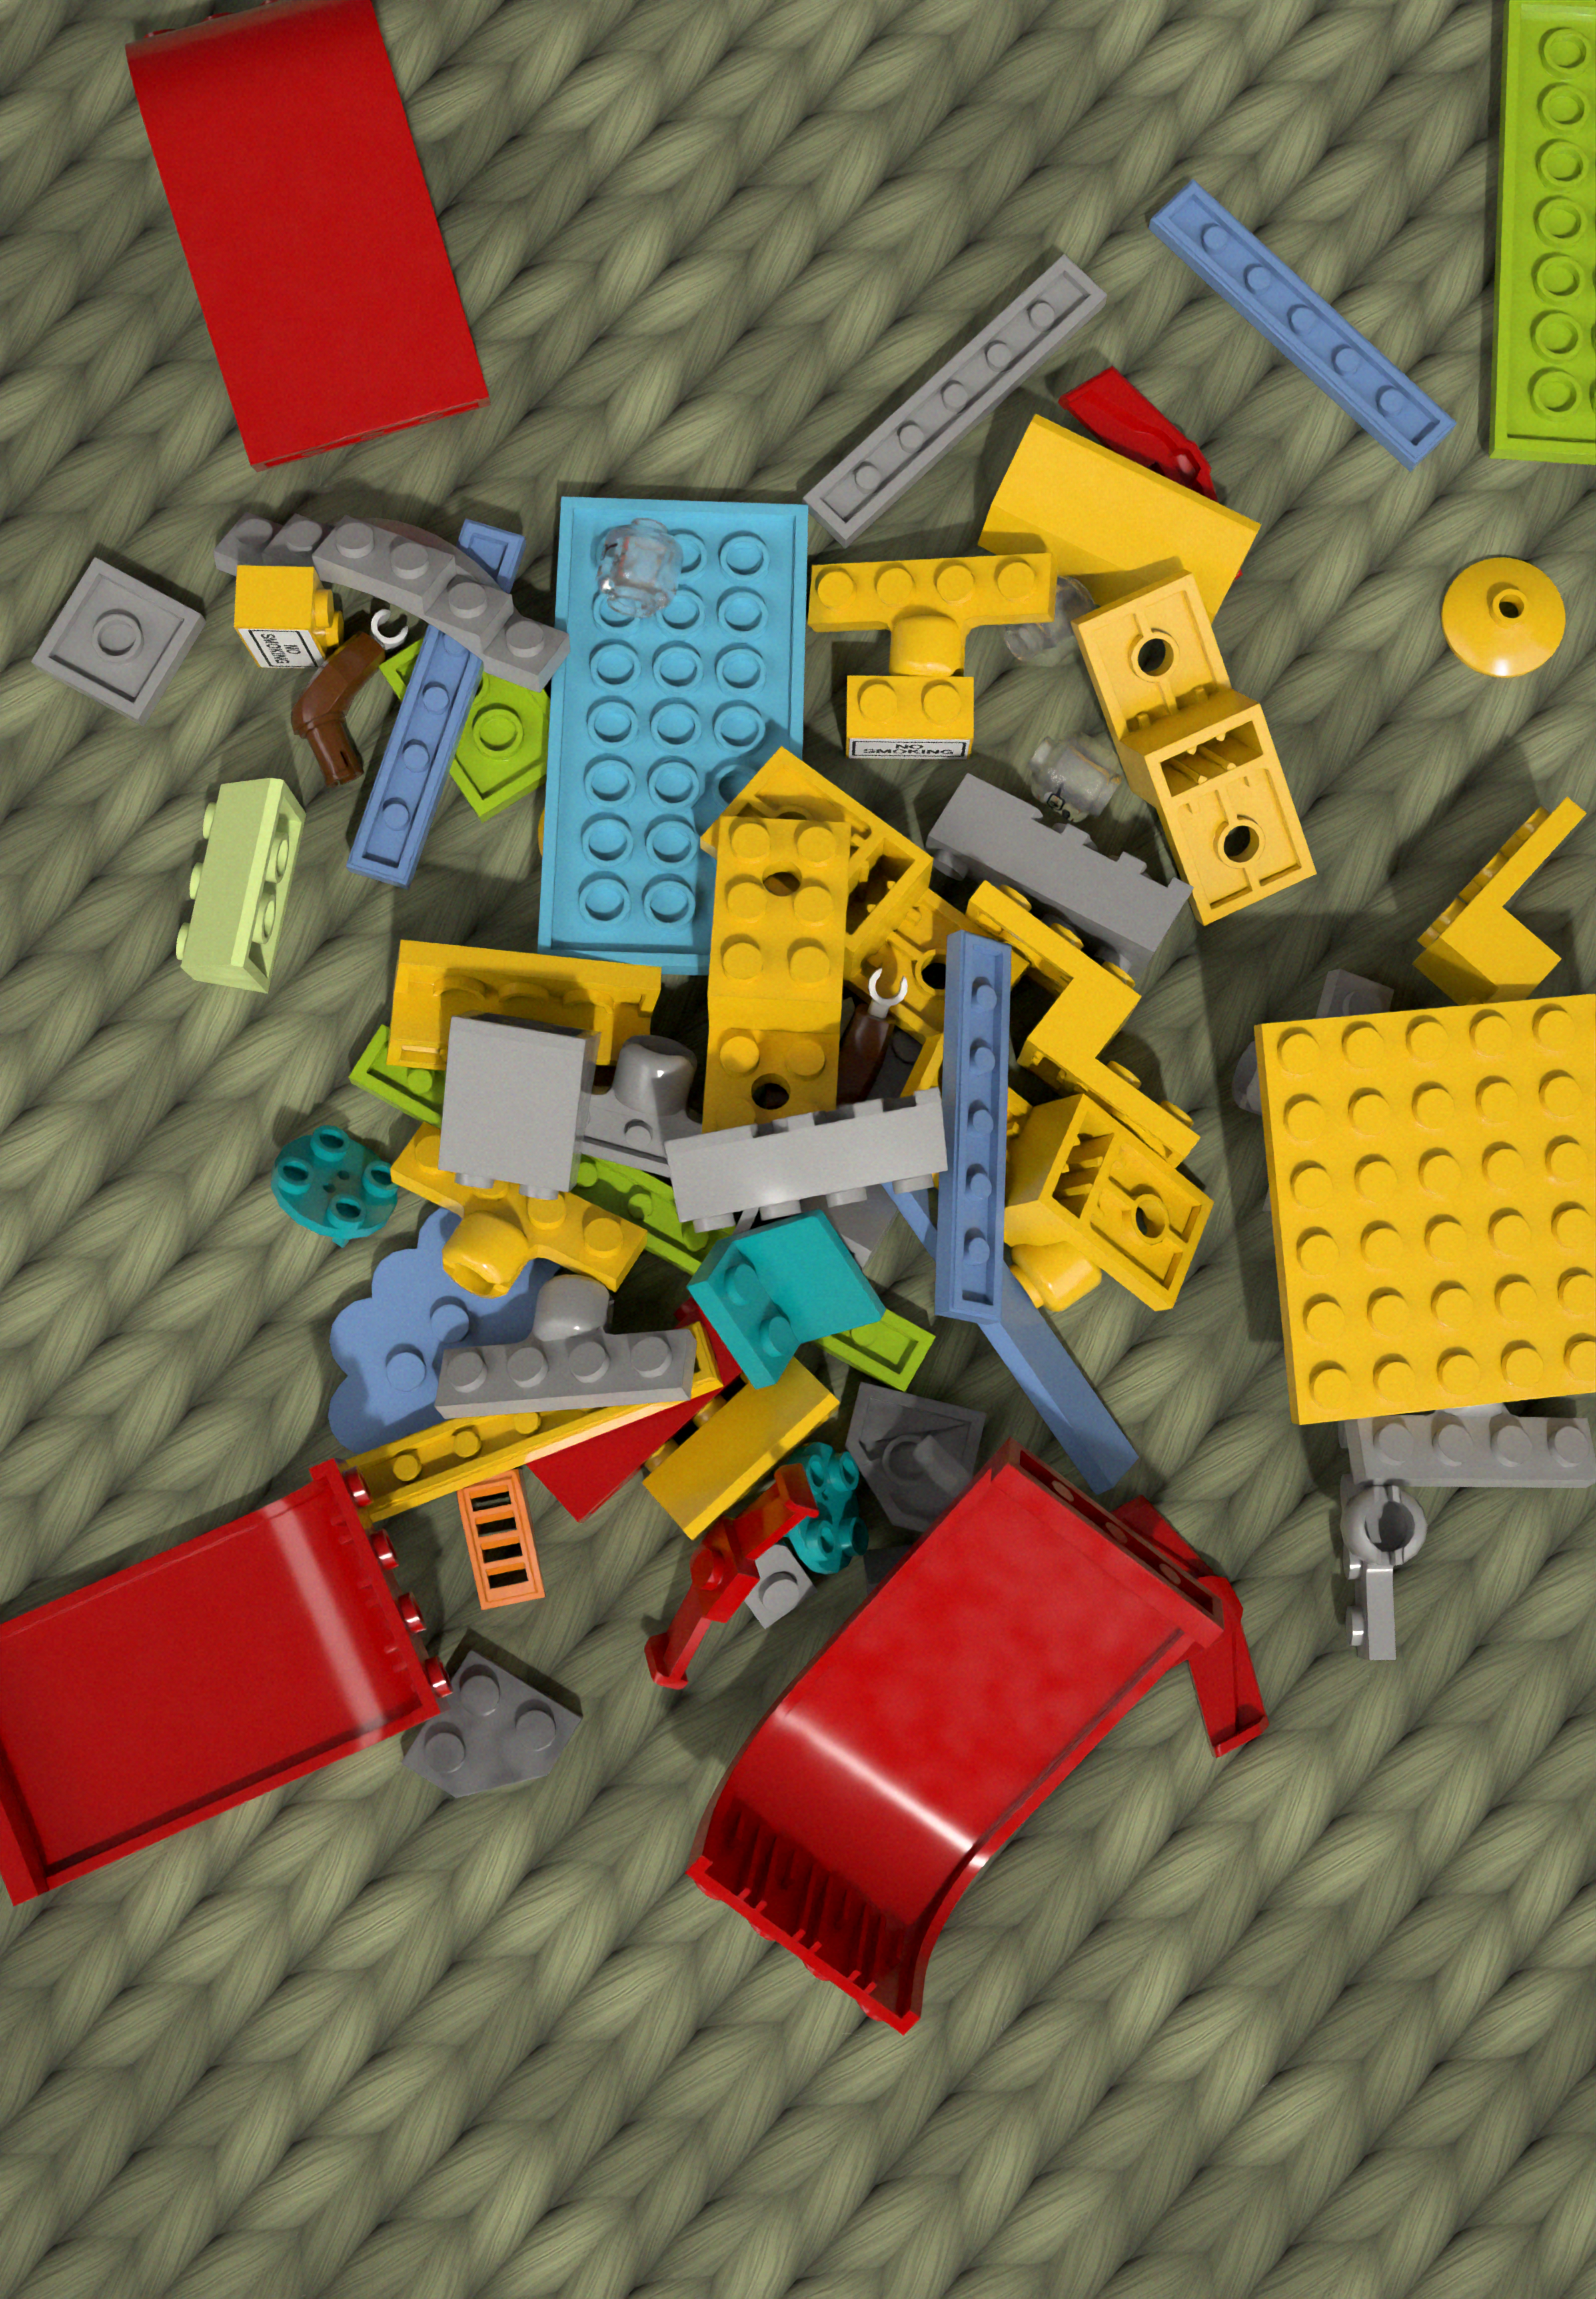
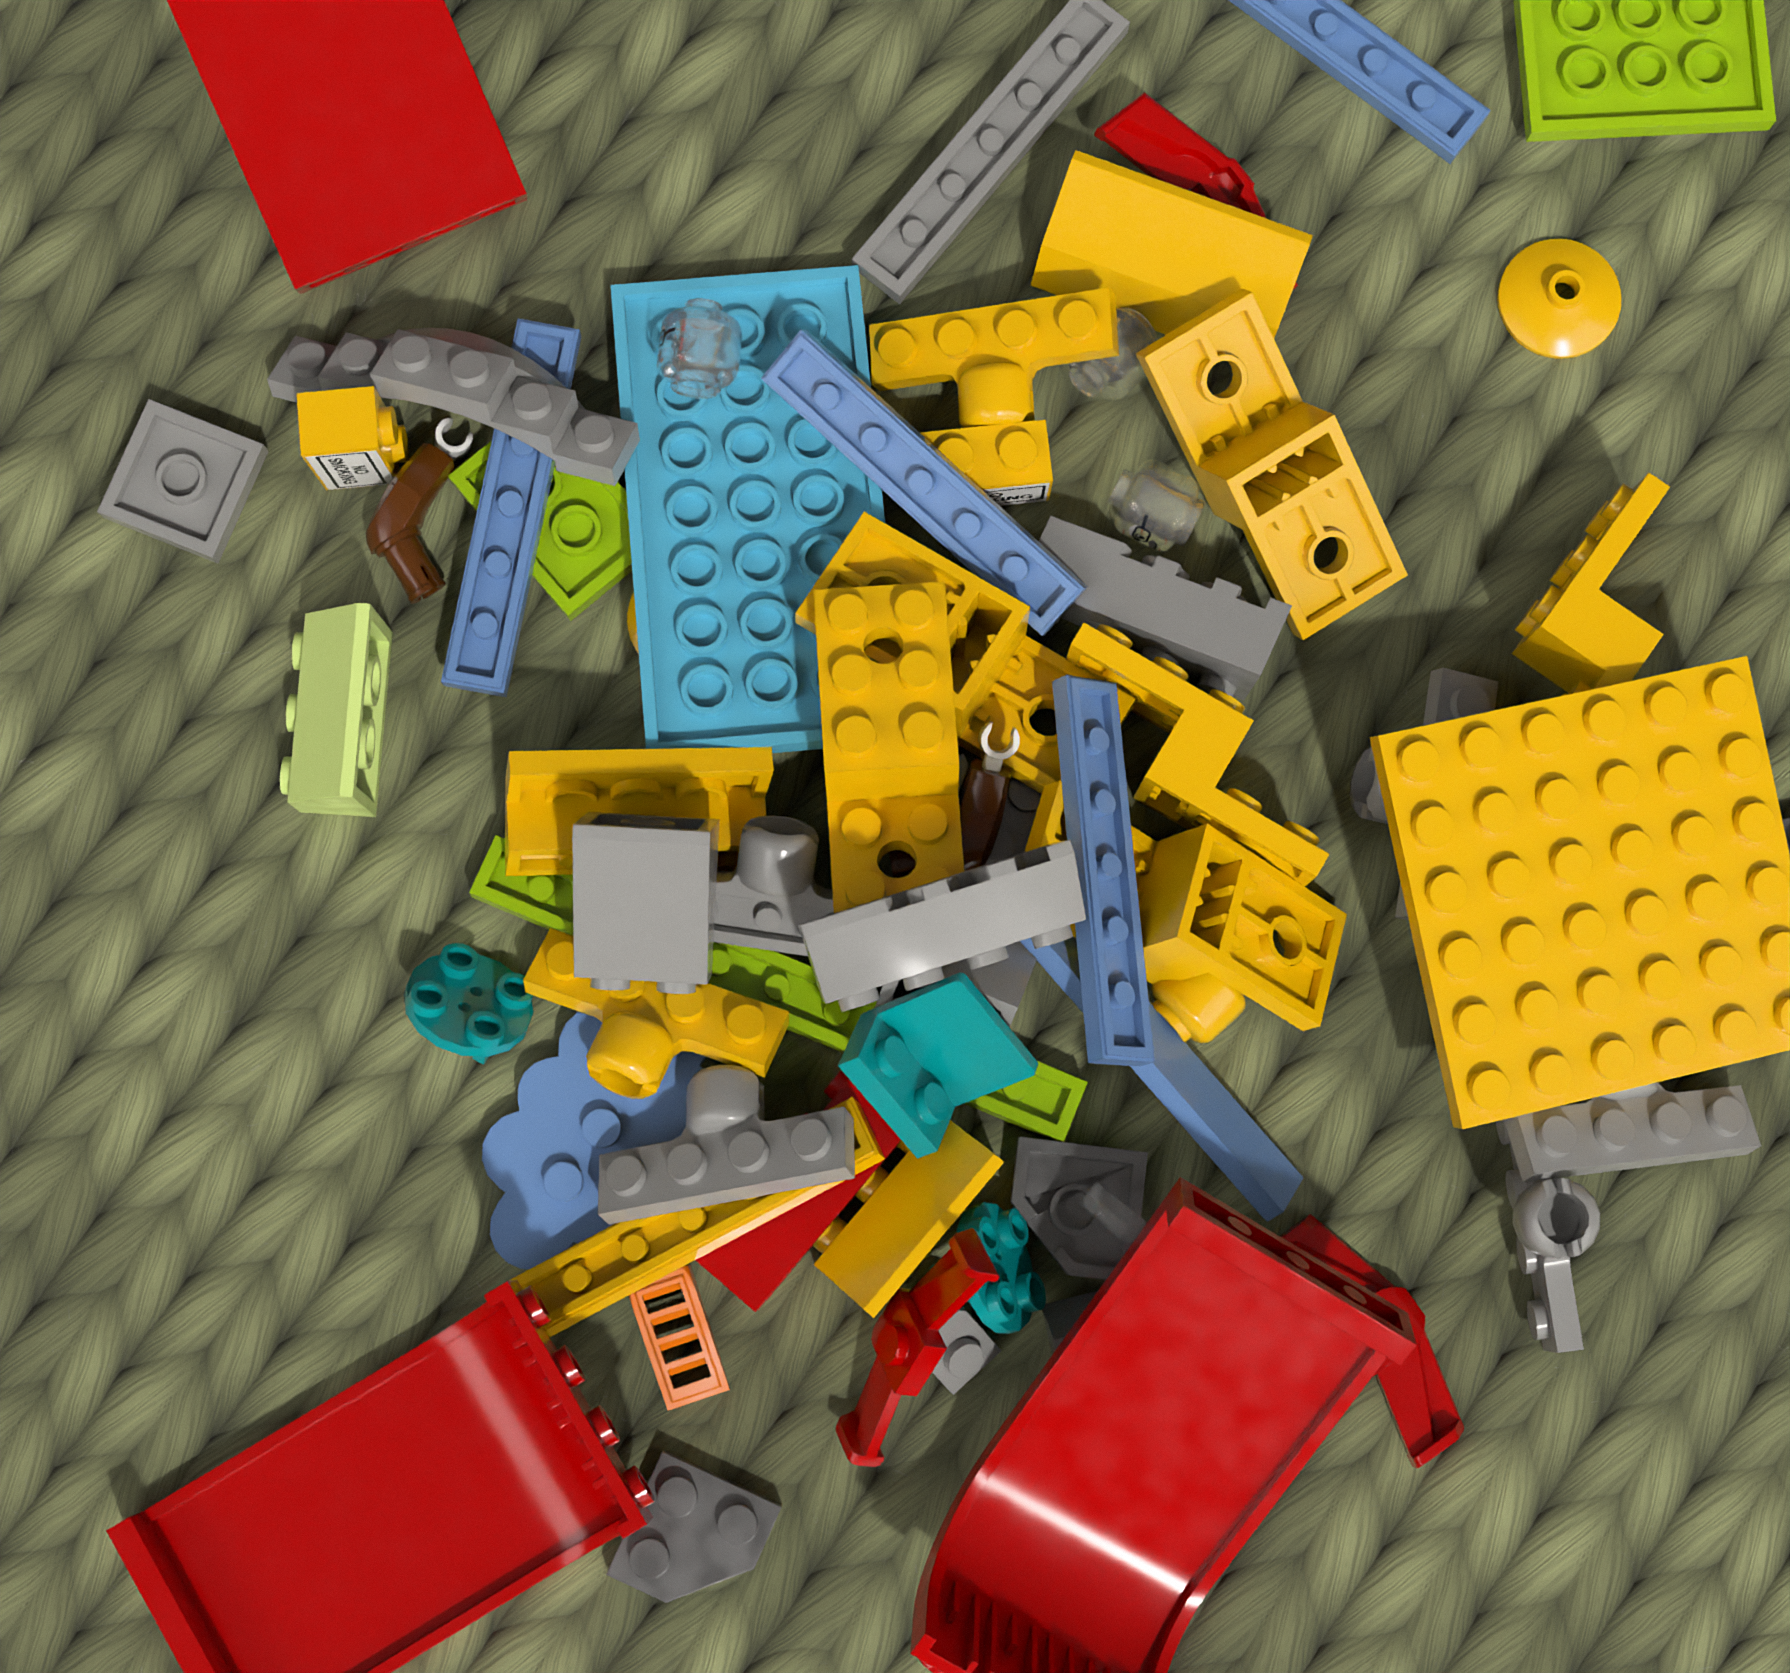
camera: 10 degrees left, 0 degrees up
(843, 722) = (922, 480): none -> medium blue tile

